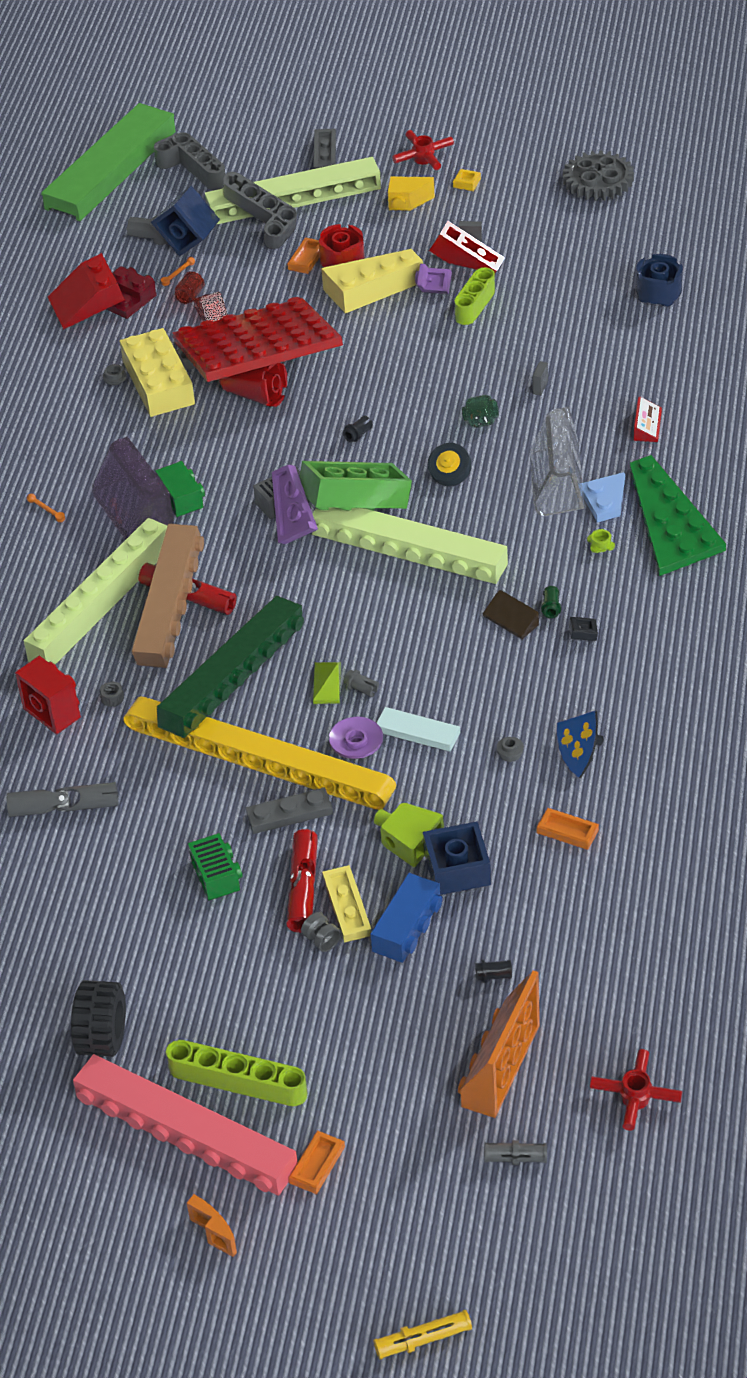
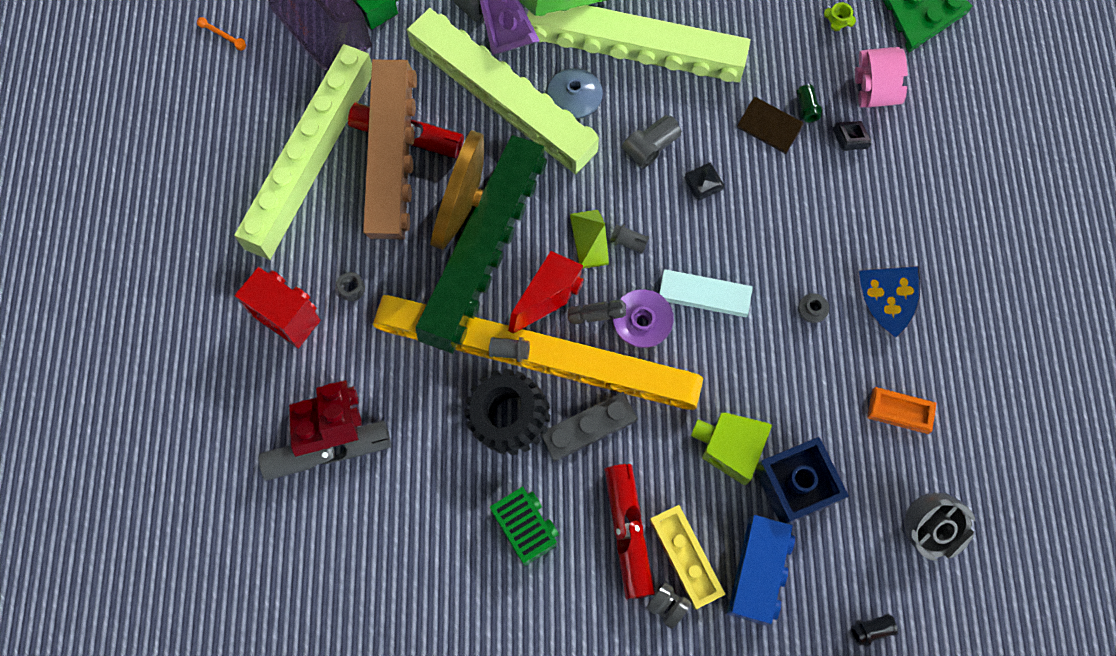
camera: 15 degrees left, 25 degrees up
(75, 773) = (325, 420): none -> dark red plate
(216, 618) = (461, 191): none -> pearl gold dish
(220, 785) = (488, 398): none -> black tyre
(238, 738) = (509, 348): none -> dark grey pin
(275, 707) = (547, 291): none -> red slope
(280, 567) = (503, 90): none -> yellowish green brick
(316, 728) = (597, 311): none -> dark grey axle
(344, 578) = (581, 101): none -> sand blue dish
(394, 619) = (646, 145): none -> dark grey piece
(440, 650) = (704, 181): none -> black tile
(566, 897) = (938, 525): none -> dark grey cylinder
(617, 584) = (881, 77): none -> bright pink brick

